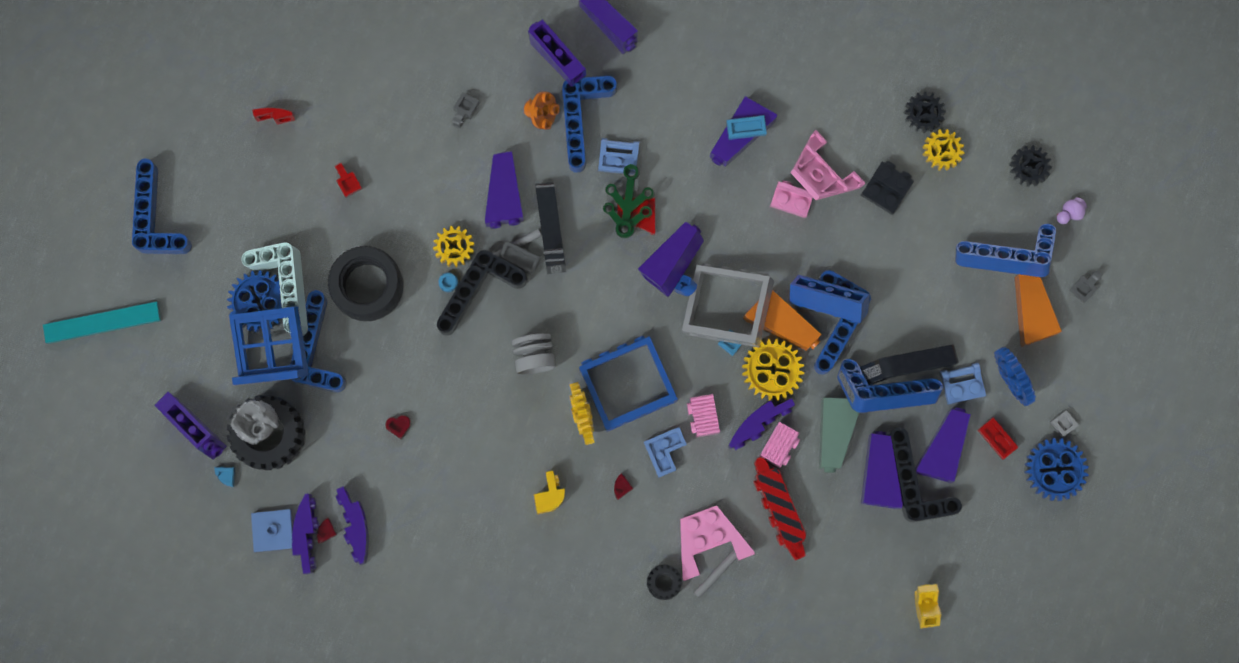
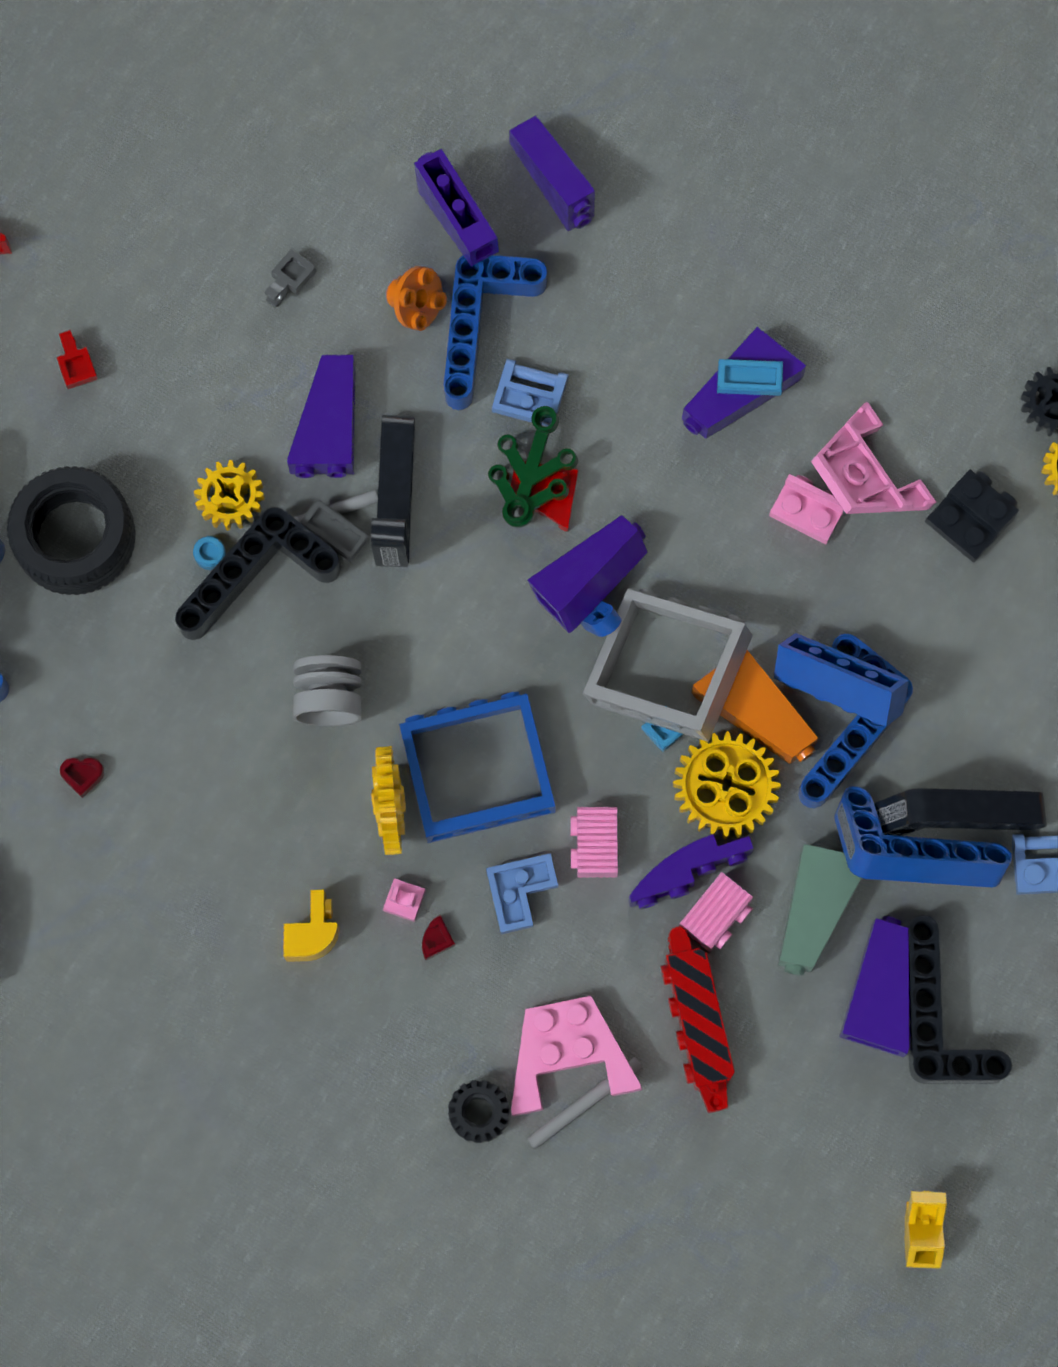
camera: 15 degrees right, 5 degrees down
(599, 467) = (404, 900): none -> bright pink tile
(945, 448) = (997, 970): dark purple slope -> none

